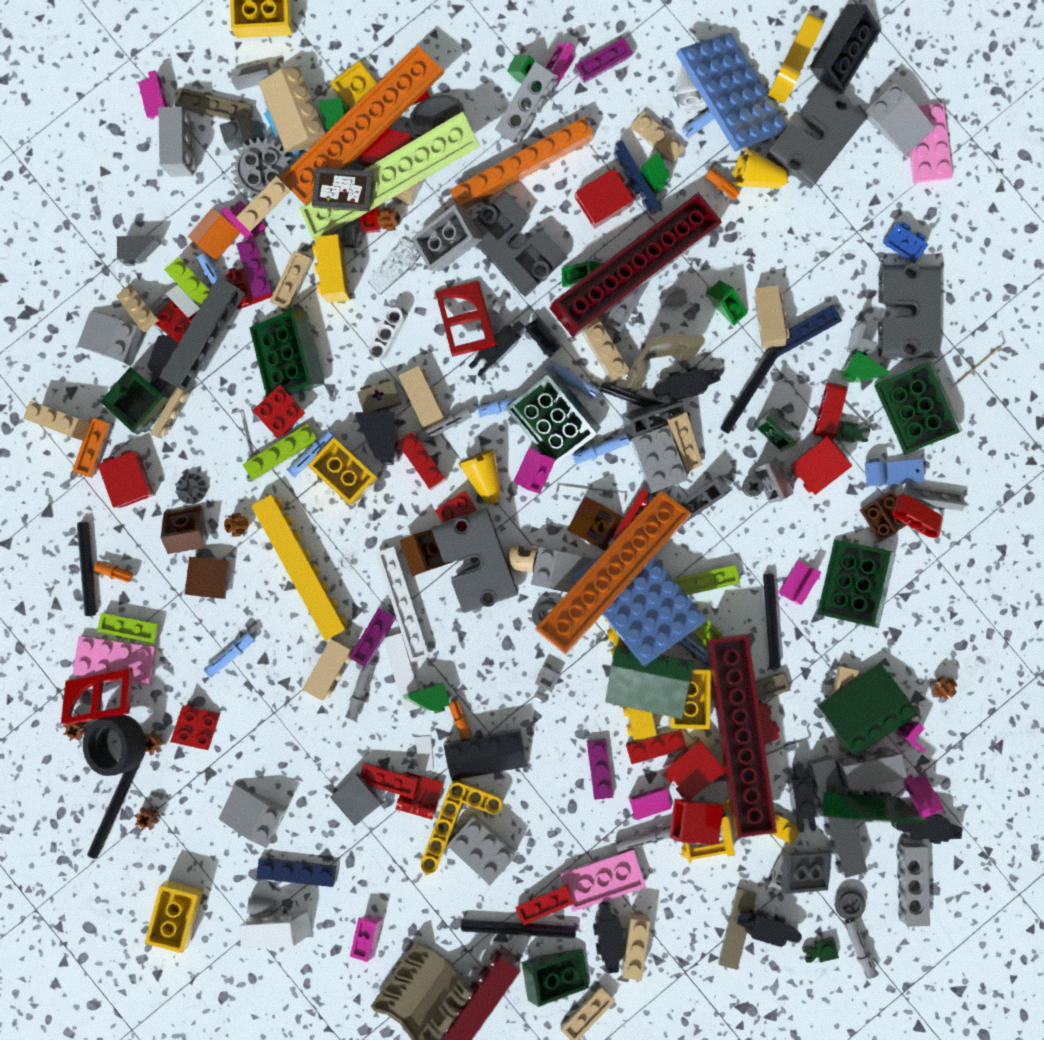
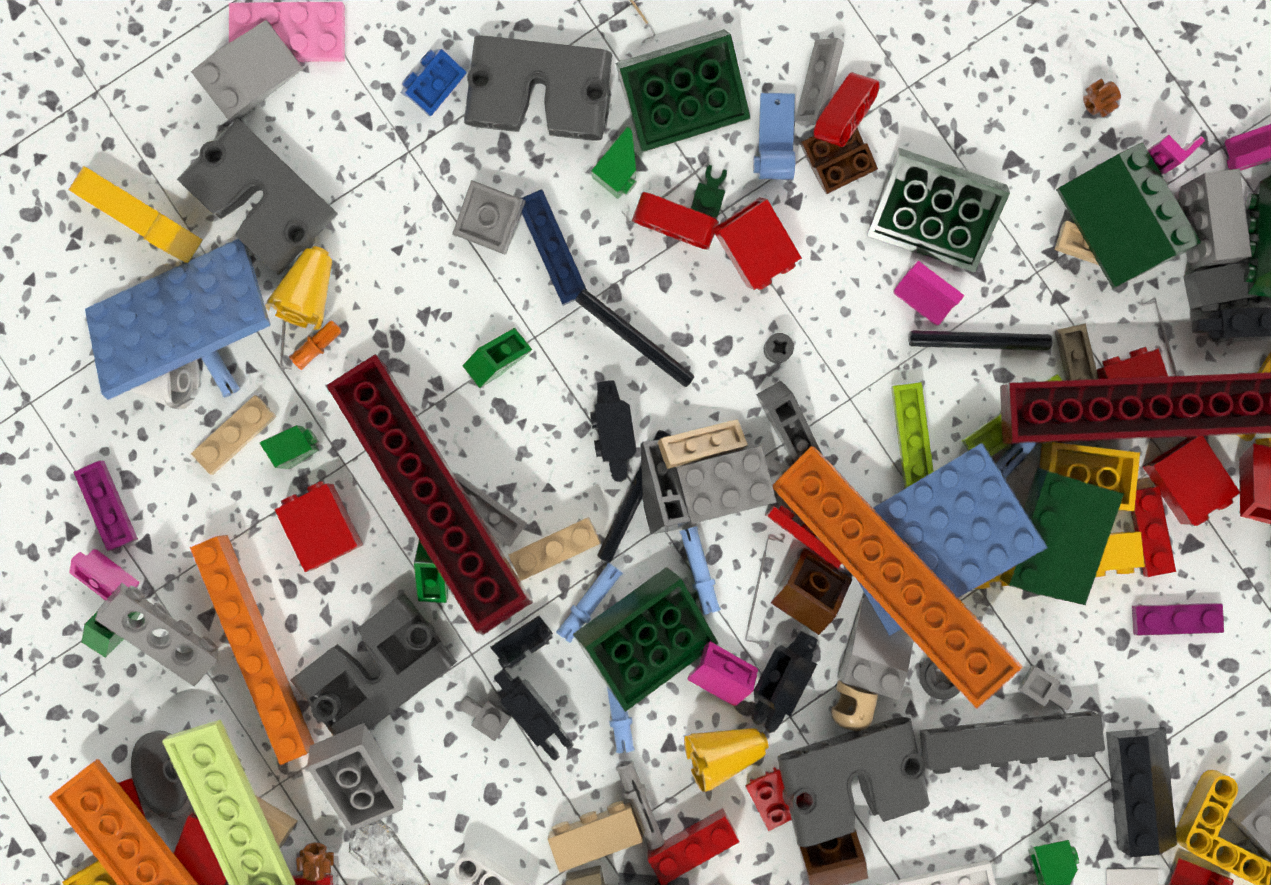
camera: 85 degrees left, 0 degrees up
(460, 719) = (1087, 823): orange axle -> none
(472, 293) = (444, 740): red window -> none
(509, 663) = (1012, 741): none -> dark grey brick
(534, 510) = (784, 681): none -> black hinge
(639, 183) = (281, 480): dark blue plate -> none
(650, 802) = (1233, 549): dark pink panel -> none
(674, 299) = (483, 436): light grey cone -> none
(677, 346) = (559, 442): dark tan hinge -> none
(771, 316) = (526, 294): tan brick -> none
(774, 480) = (776, 314): light grey slope -> none
(778, 429) = (698, 300): dark green slope -> none
(819, 287) = (488, 217): none -> light grey tile
(845, 47) = (127, 138): black slope -> none
(859, 344) = (579, 172): light grey panel -> none

